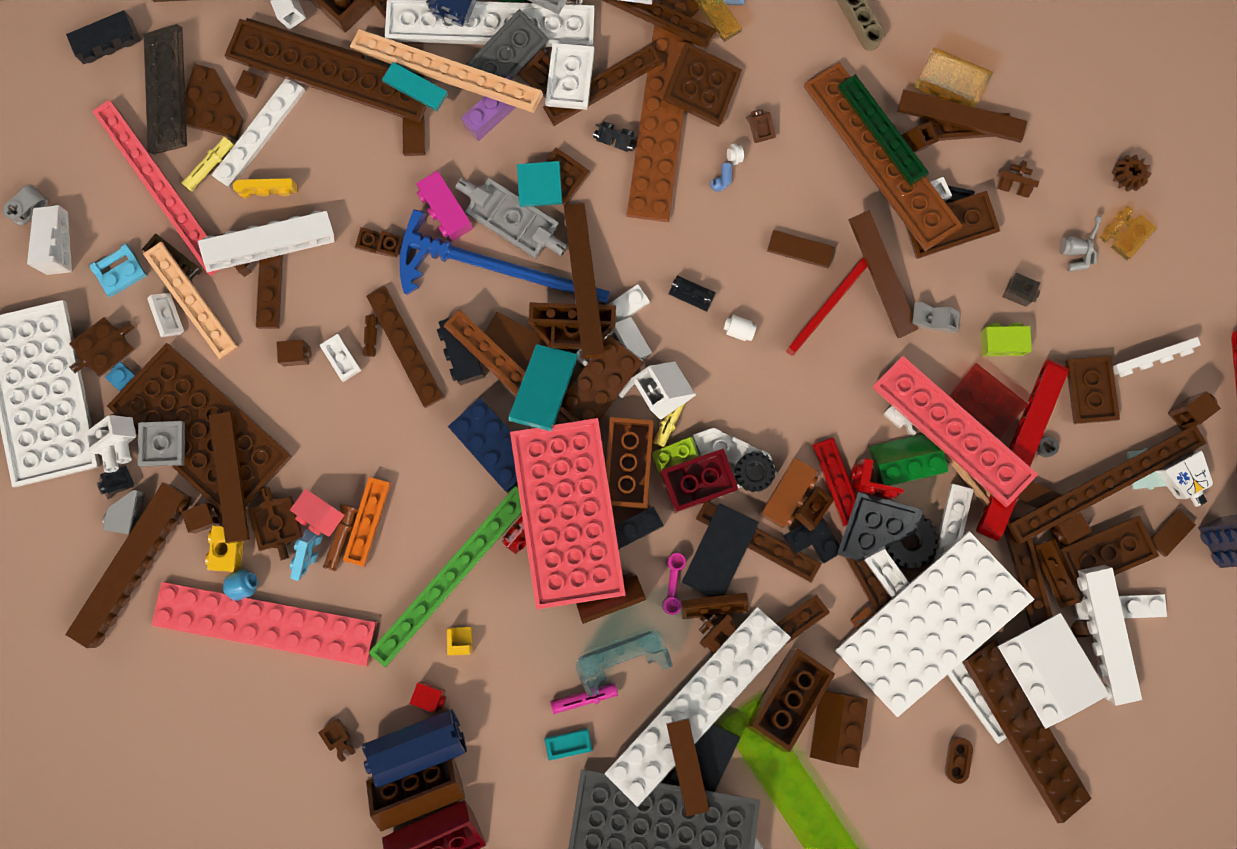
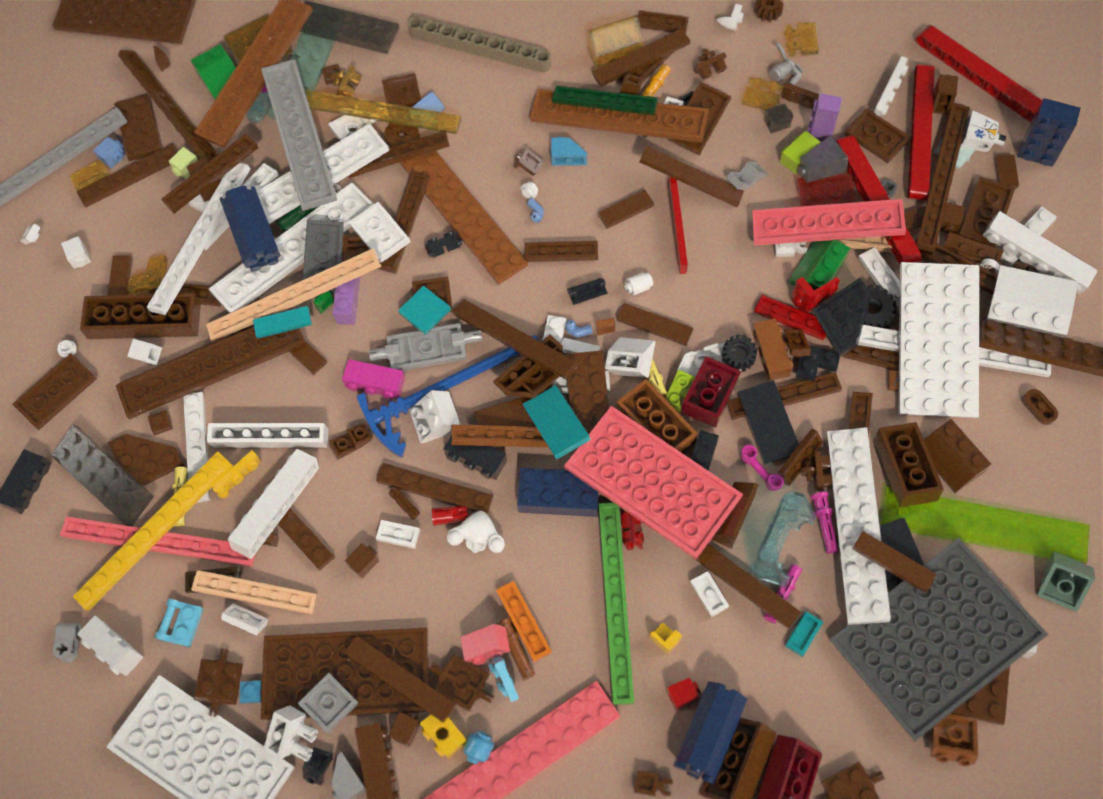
camera: 45 degrees left, 15 degrees down
(161, 175) = (152, 531): none -> yellow plate
(316, 177) = (267, 435): none -> white brick
(393, 380) = (448, 515): none -> red hinge
(400, 417) = (478, 532): none -> white head
(461, 285) = (434, 416): none -> white slope
(467, 98) = (323, 301): none -> green plate
(527, 642) = (709, 594): none -> white plate
(561, 669) = (749, 587): none -> reddish brown tile
(647, 320) = (577, 331): none -> medium blue arm
(673, 340) = (605, 326): none -> dark orange tile
(684, 667) = (823, 513): none -> dark pink pin
(702, 84) = (468, 168): reddish brown plate -> none
(706, 236) = (561, 251): none -> reddish brown plate
(717, 376) = (655, 324): none -> reddish brown tile
(802, 147) = (567, 152): none -> dark azure slope
(948, 153) = (657, 81): none -> light orange pin
(1014, 369) = (823, 161): none -> flat silver slope
(1020, 96) = (662, 21): none -> reddish brown tile
(1028, 256) = (762, 99): none -> clear yellow plate
(1055, 602) = (991, 265): none -> white tile
(1056, 331) = (824, 116): none -> medium lavender brick
(1066, 292) = (799, 95): none -> reddish brown plate
(1089, 156) = (732, 22): none -> white plate
(1136, 423) = (921, 132): none -> red beam

